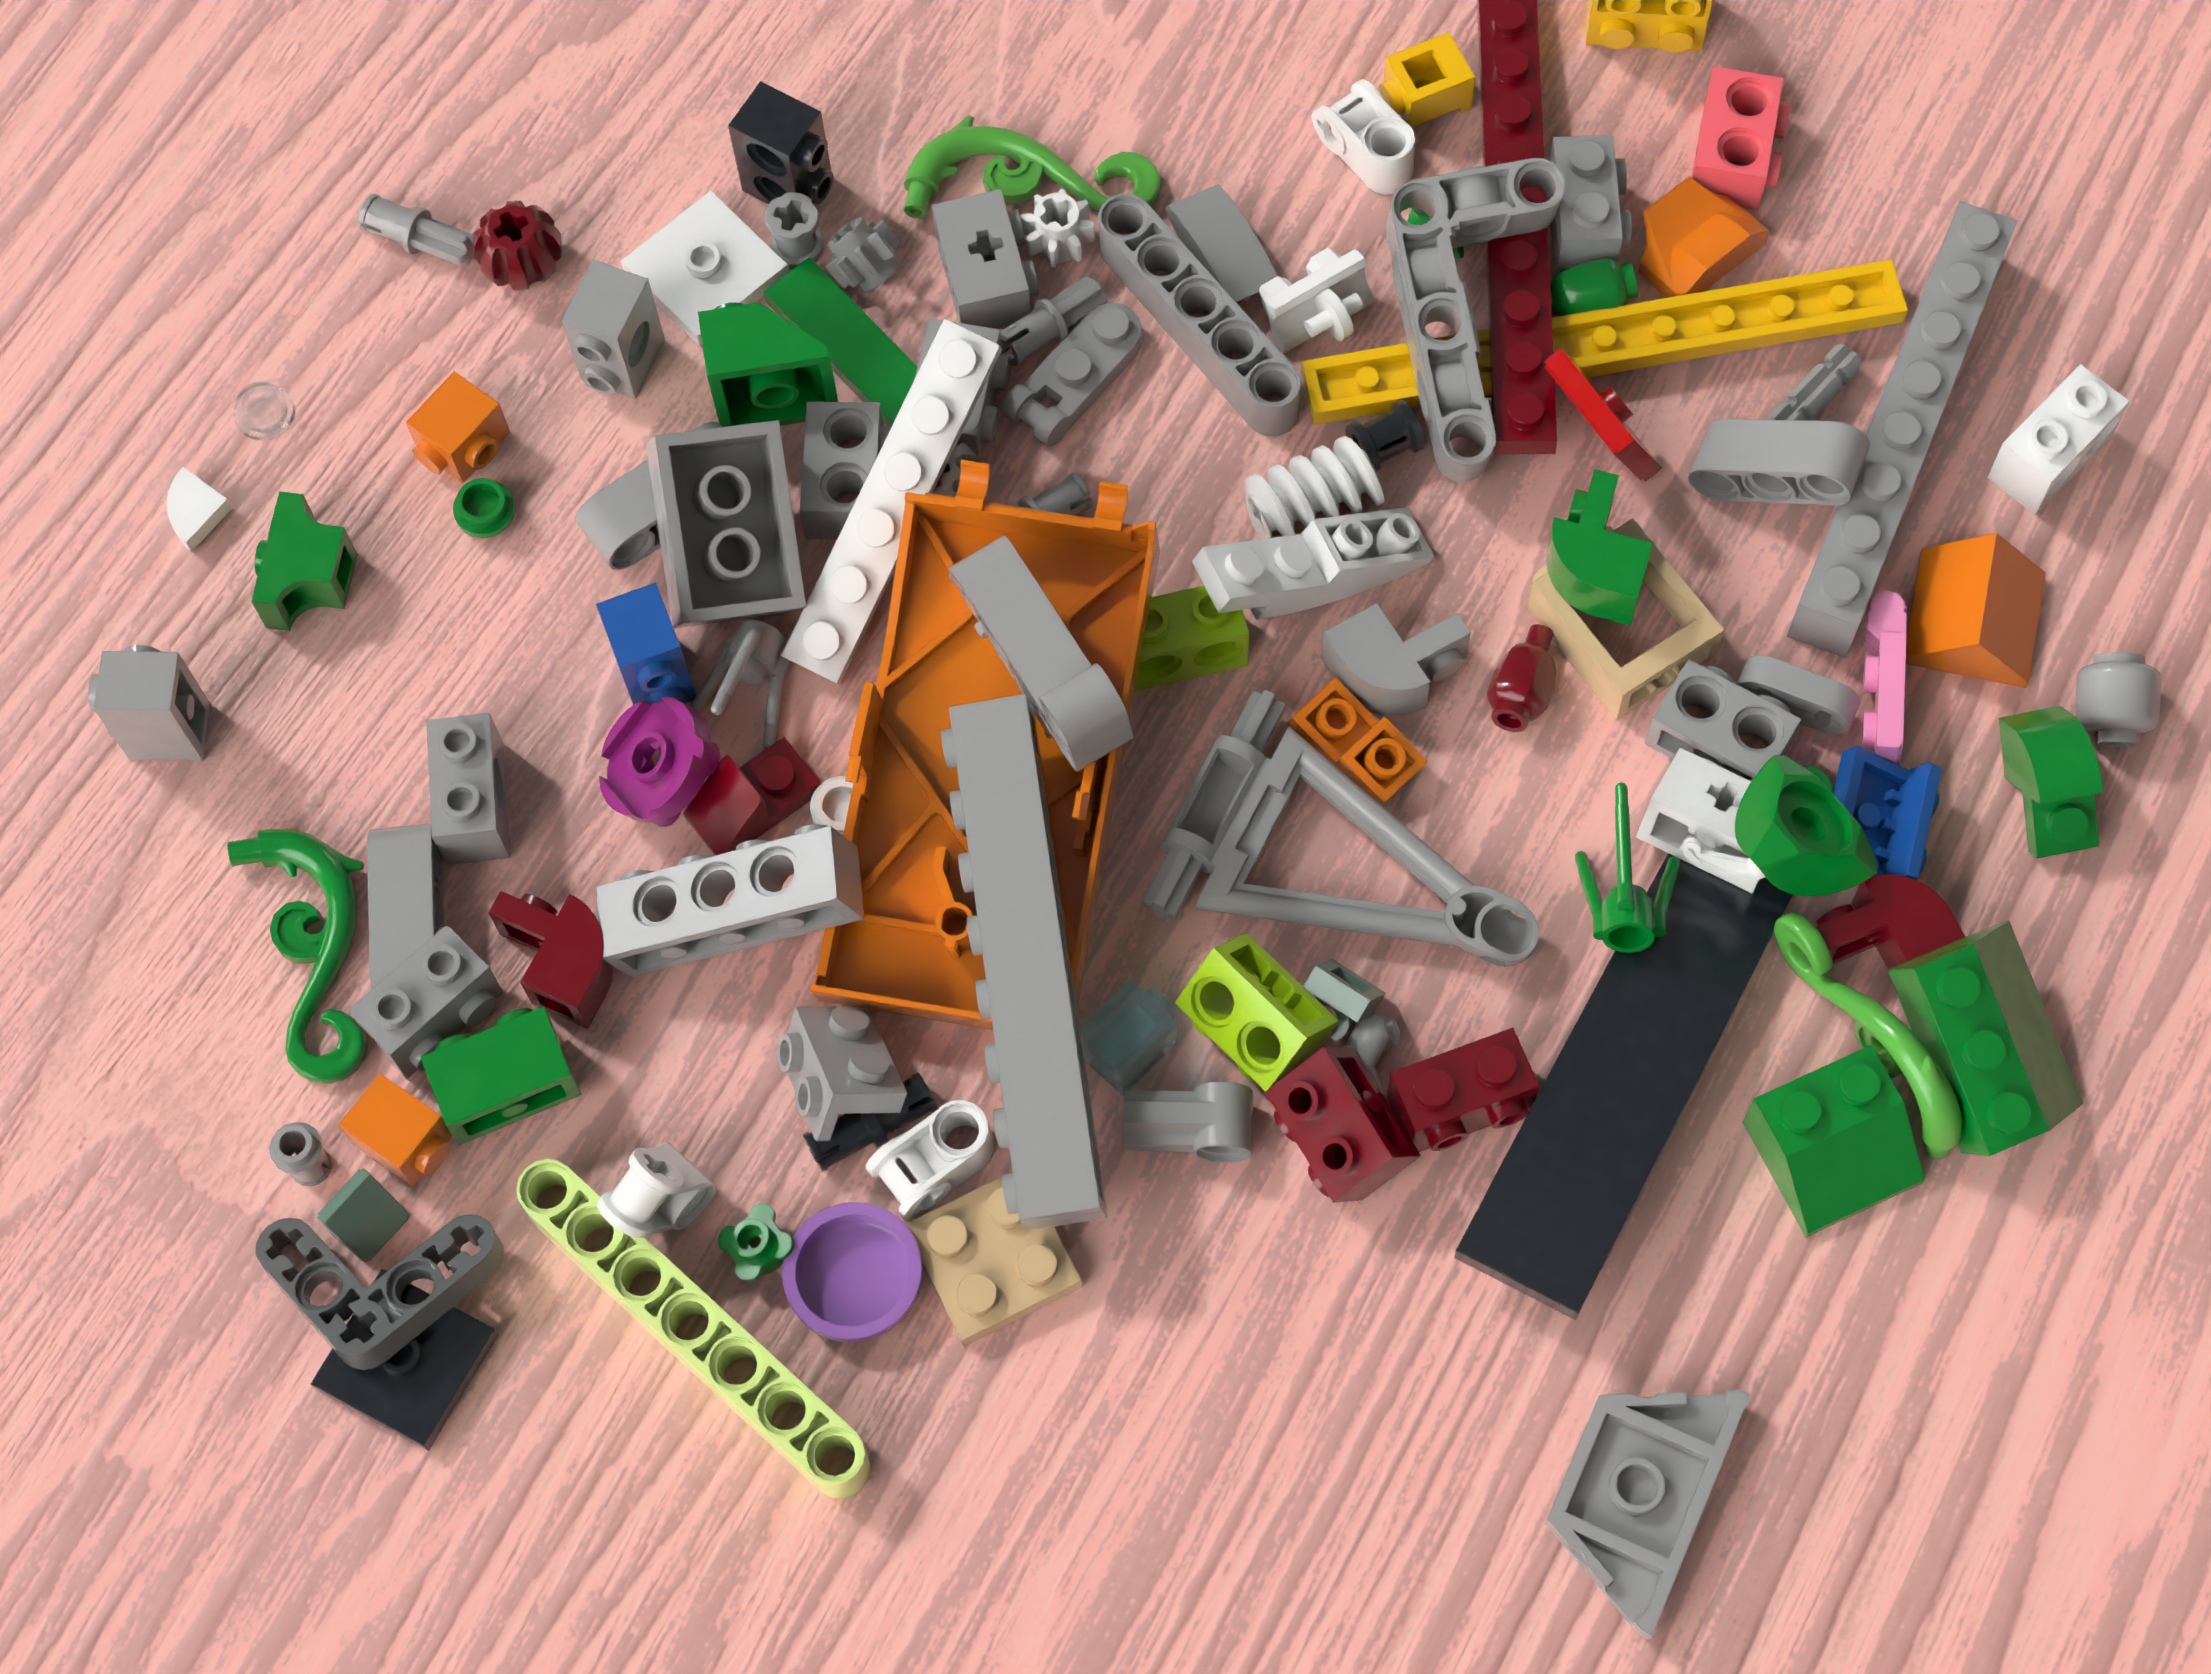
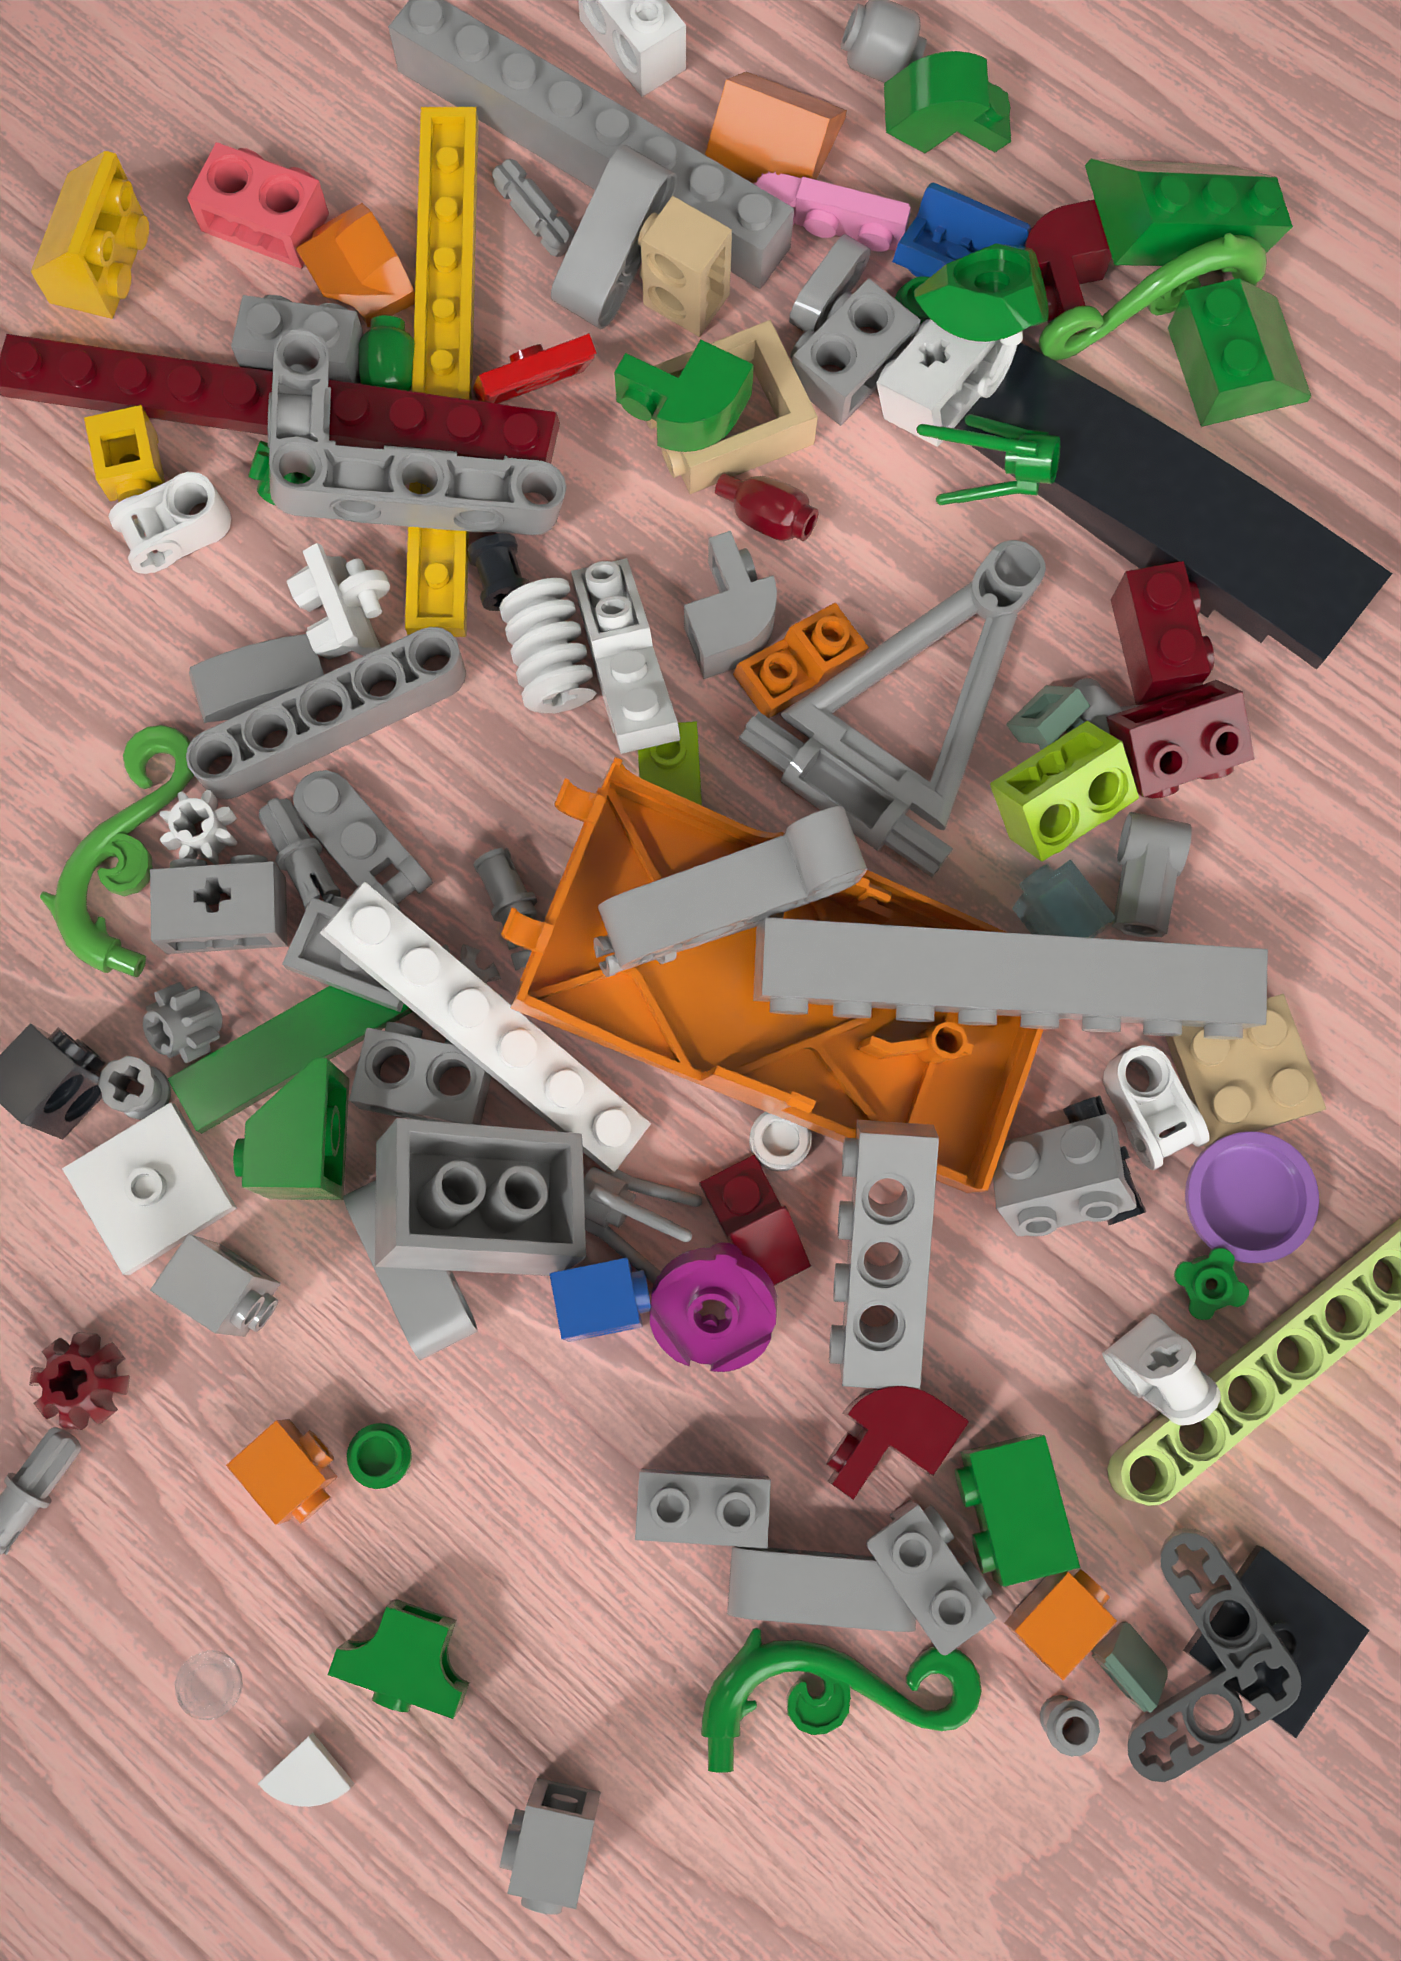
camera: 85 degrees left, 10 degrees up
(1763, 535) = (685, 265): none -> tan brick

